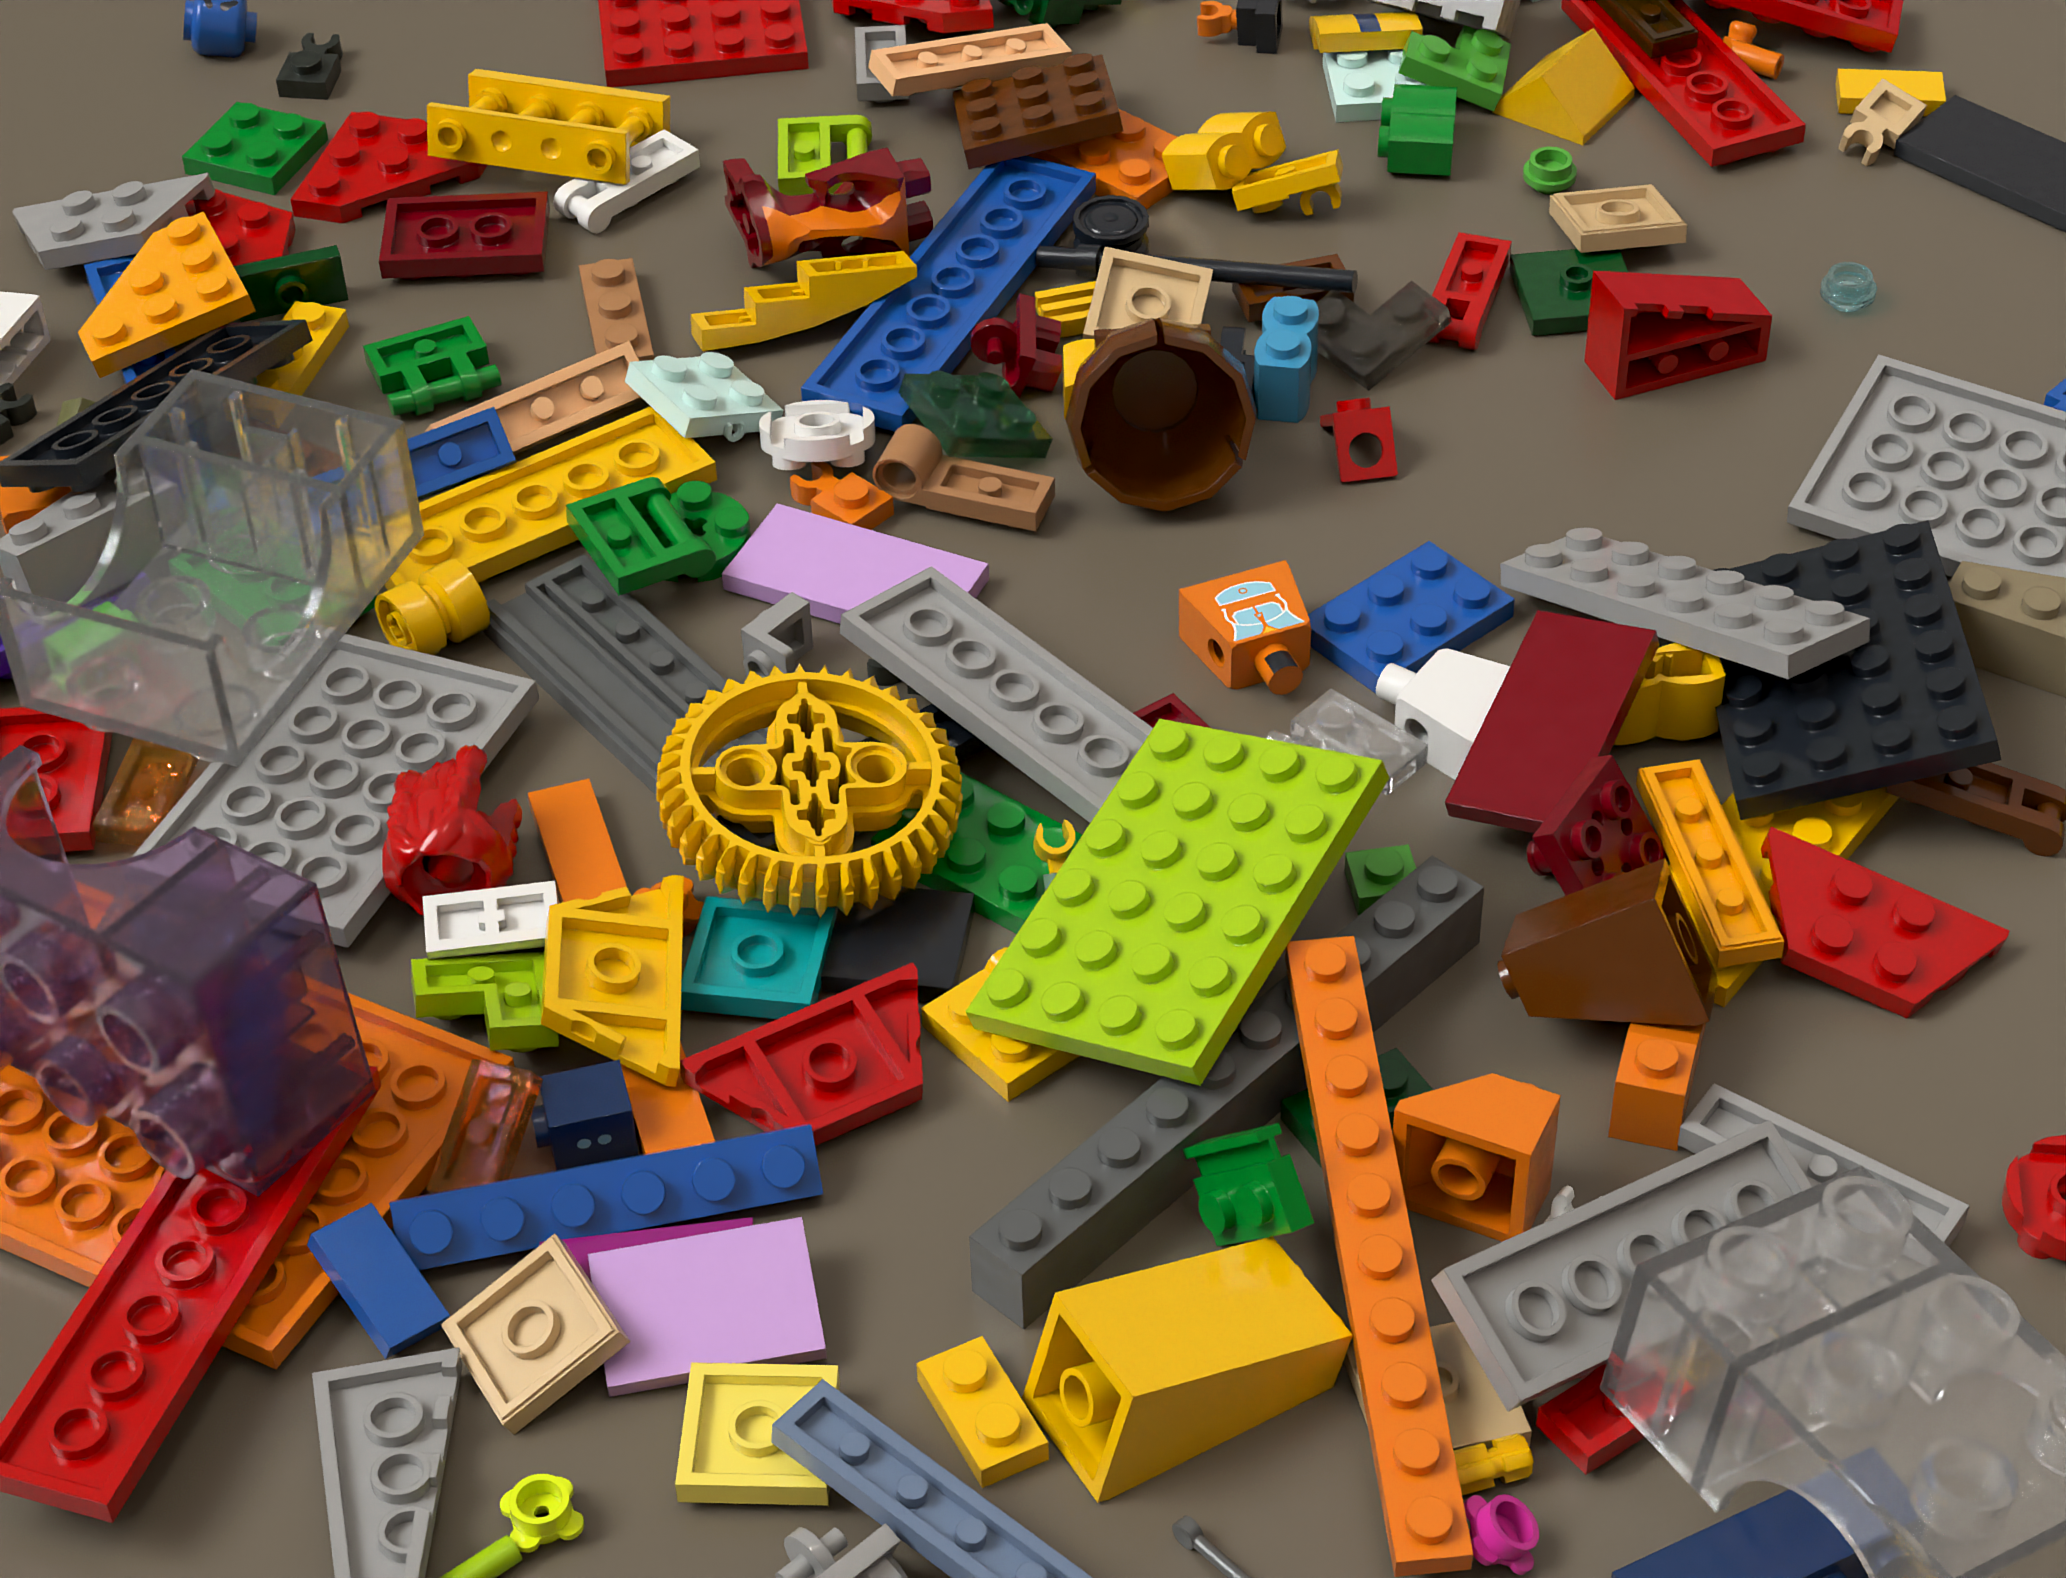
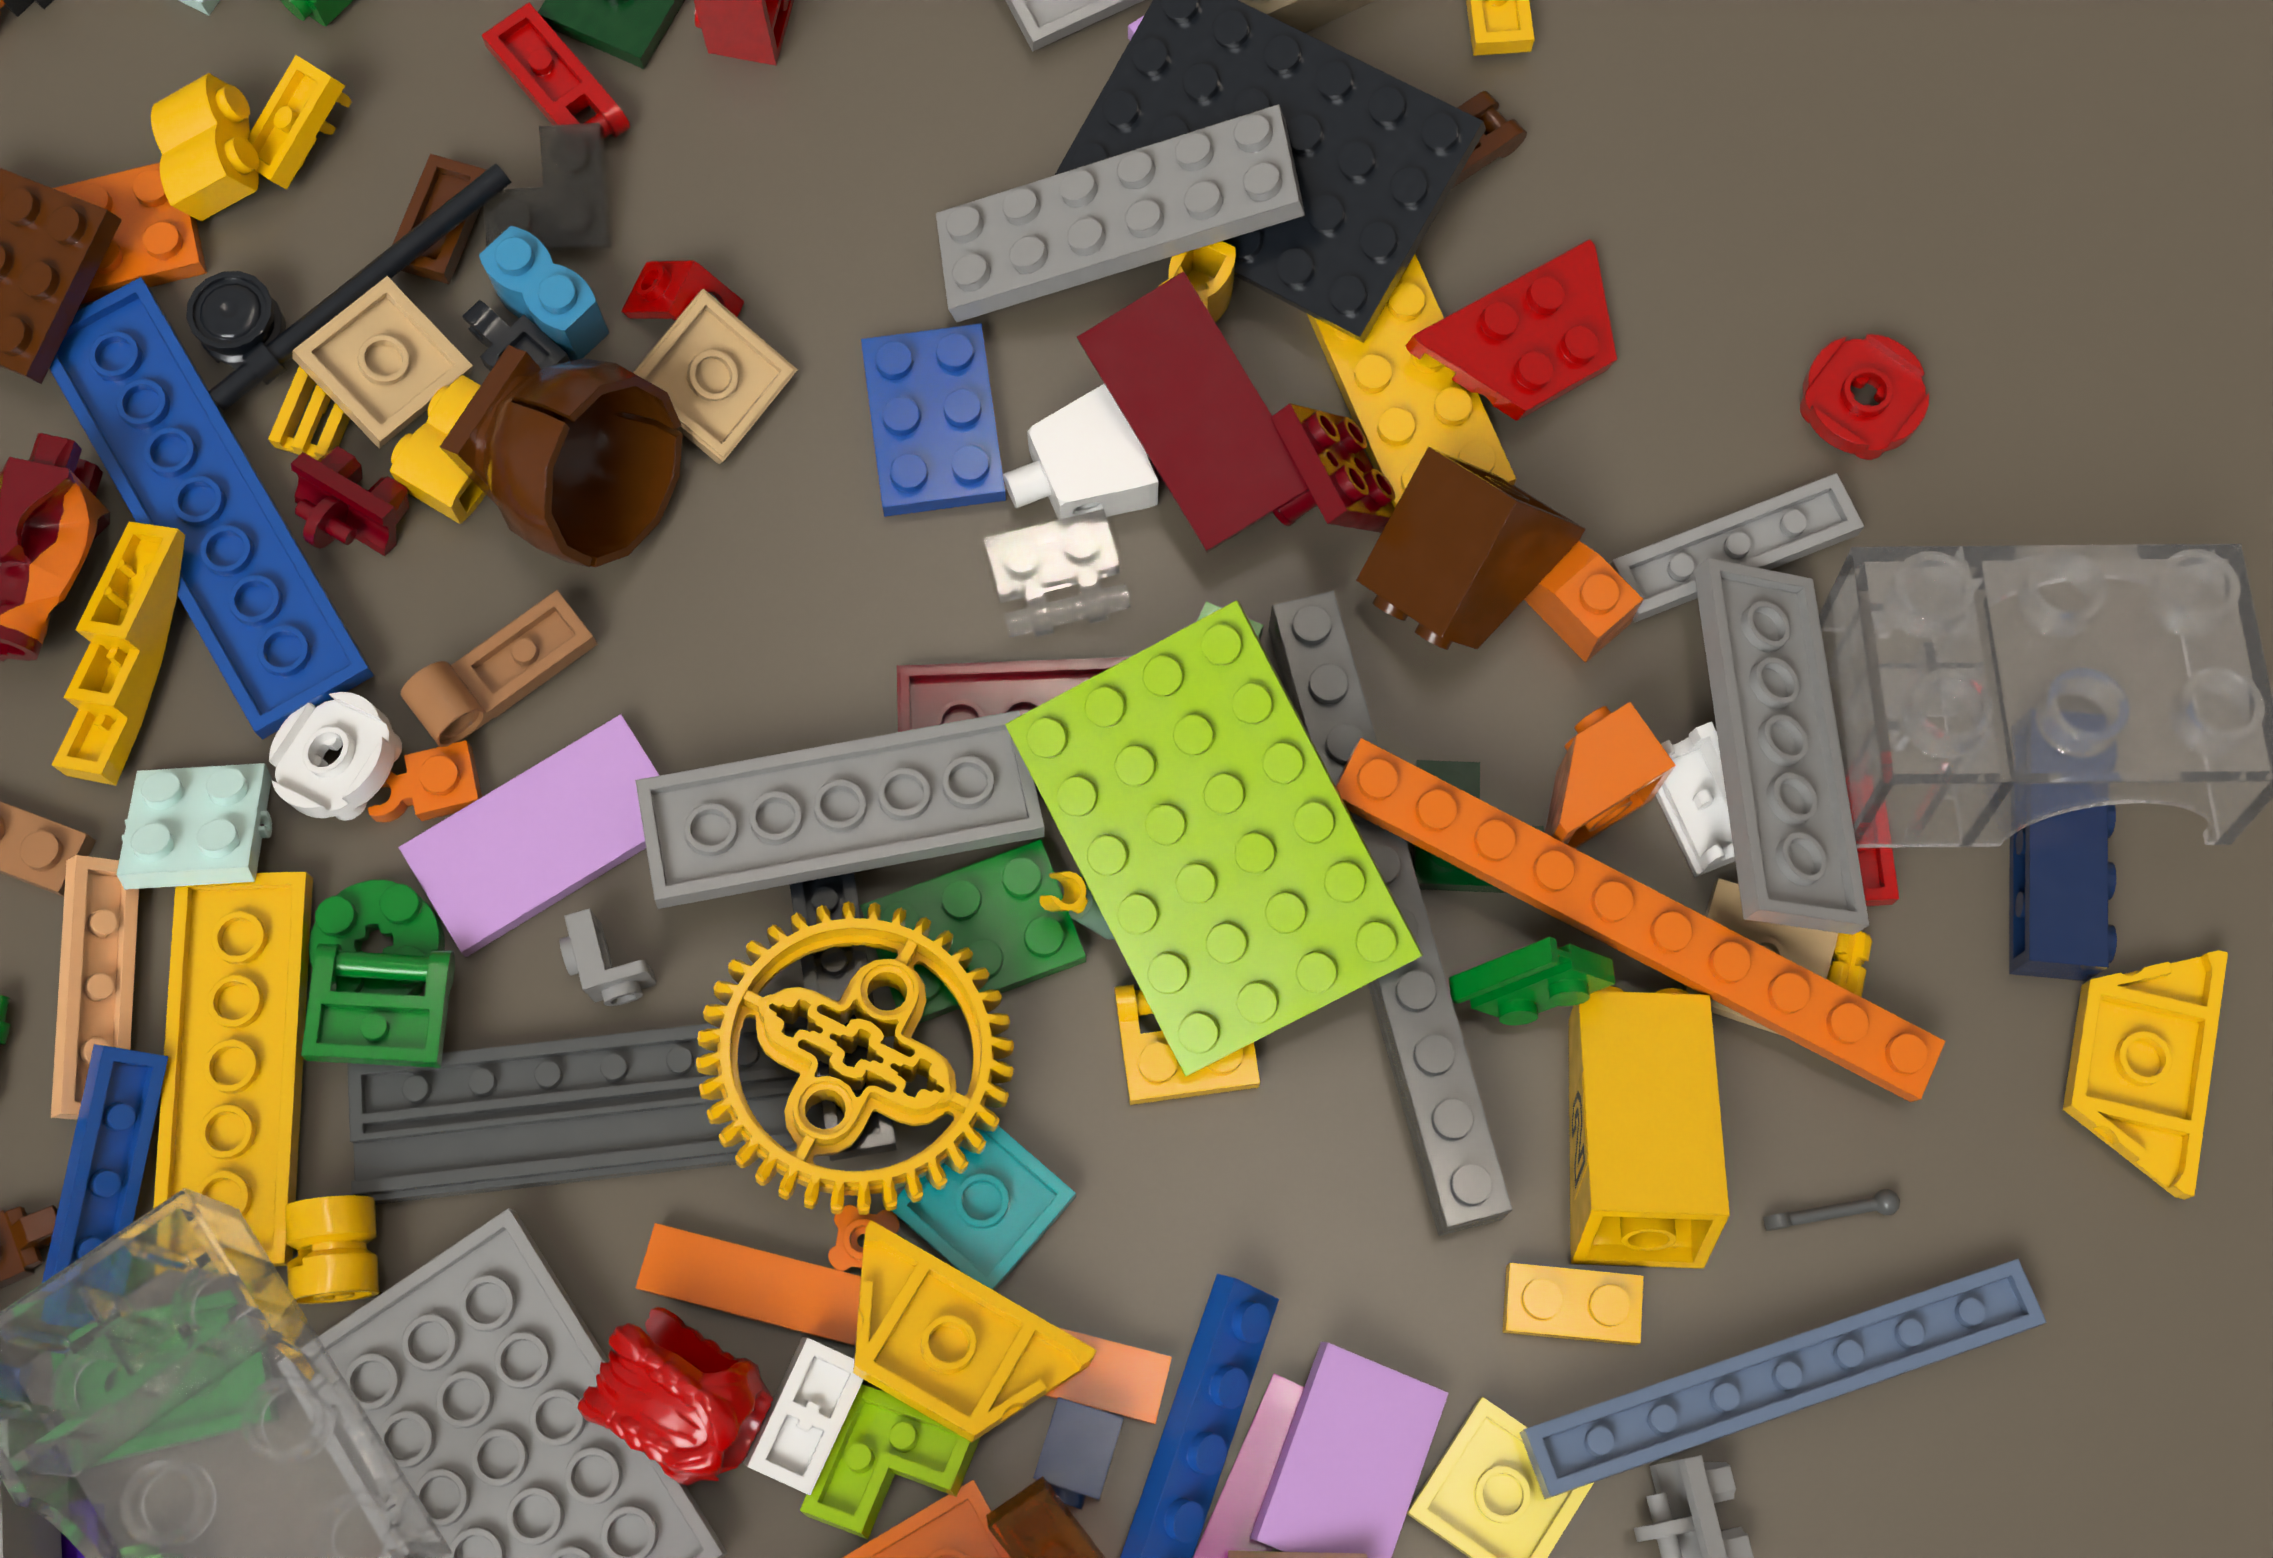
camera: 60 degrees left, 30 degrees up
(824, 1063) = (1148, 1217): red wing -> none
(916, 928) = (1054, 1072): black tile -> none
(975, 415) = (415, 604): clear green plate -> none
(1249, 627) = (871, 553): orange torso -> none
(1310, 473) = (715, 374): none -> tan plate
(1502, 1532) = (1920, 1000): dark pink plate -> none
(1709, 864) = (1396, 400): light orange tile -> none

